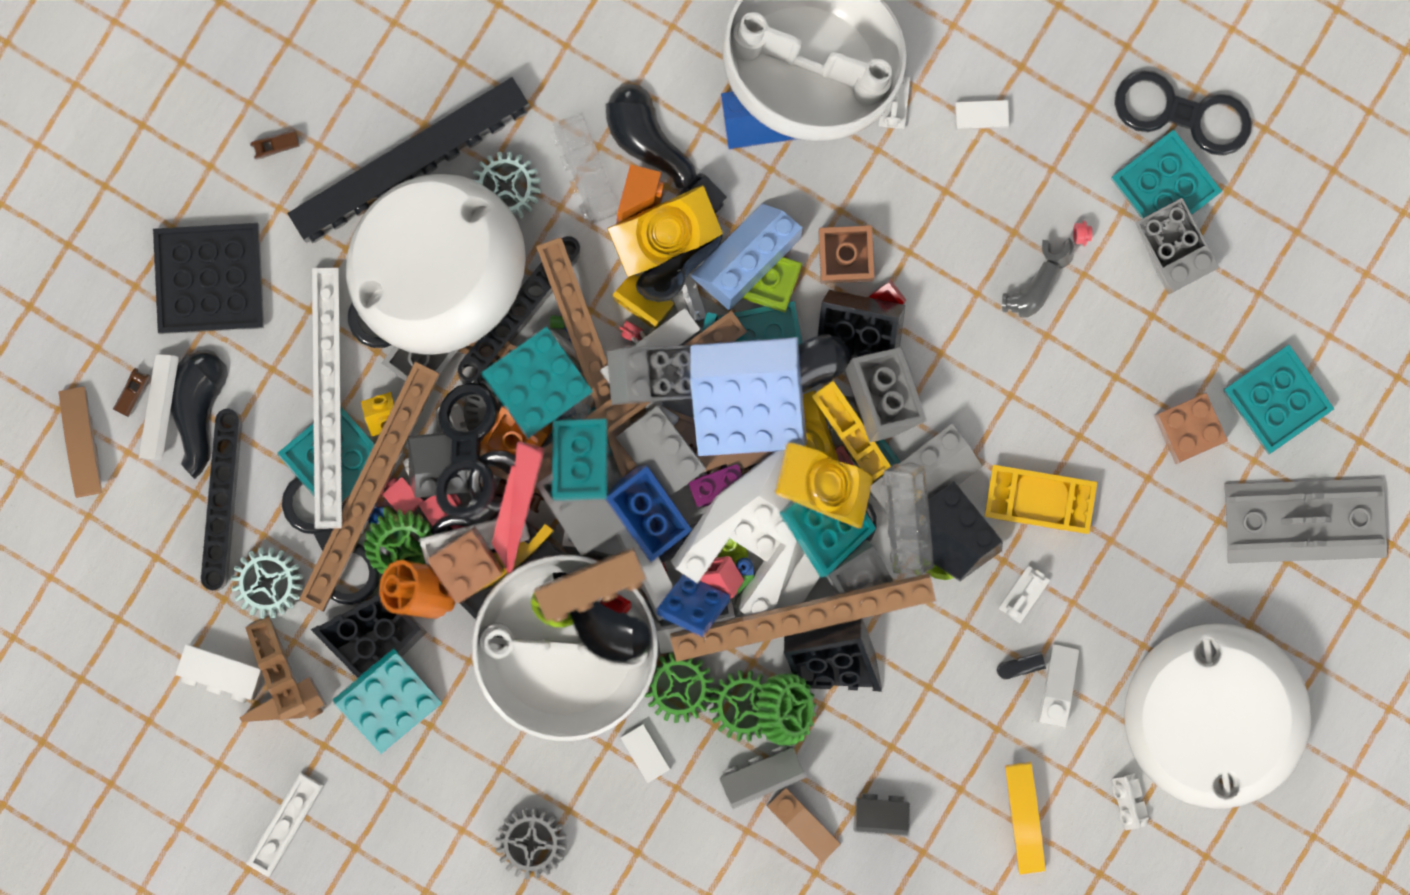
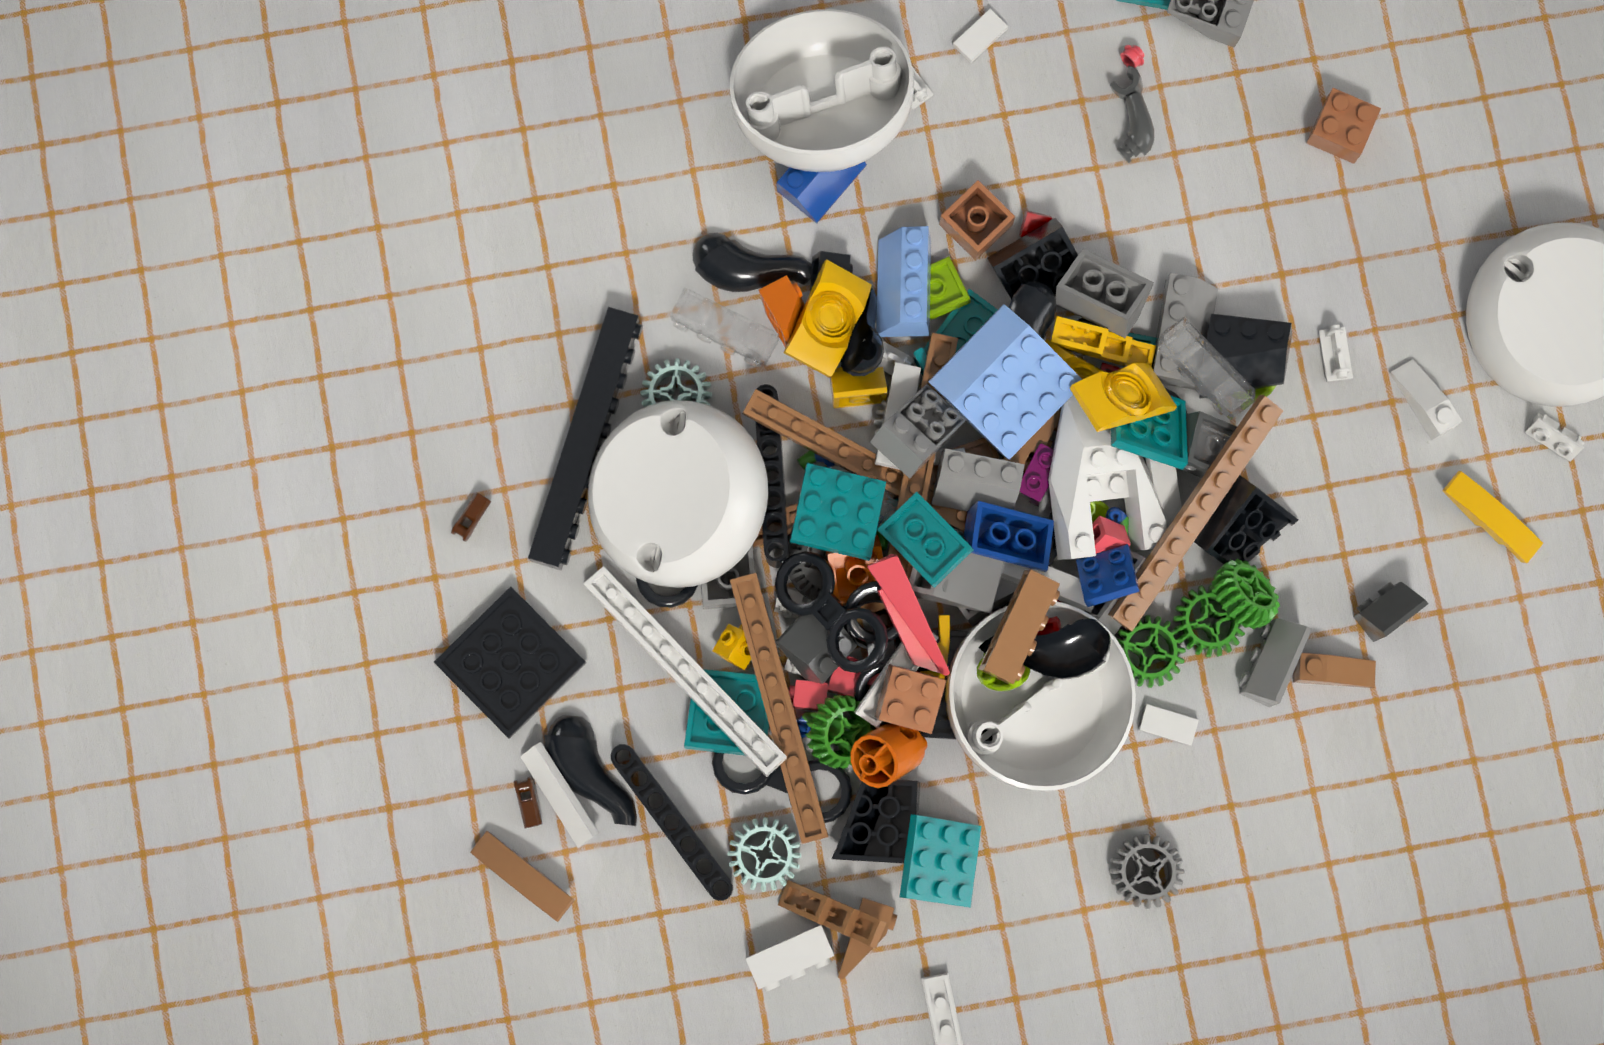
camera: 45 degrees left, 5 degrees down
(630, 330) = (867, 418): coral plate -> none
(1022, 665) = (1383, 408): black bar -> none
(1040, 499) = (1284, 273): yellow slope -> none
(1278, 399) = (1385, 50): teal plate -> none
(1305, 521) = (1485, 121): light grey hinge -> none

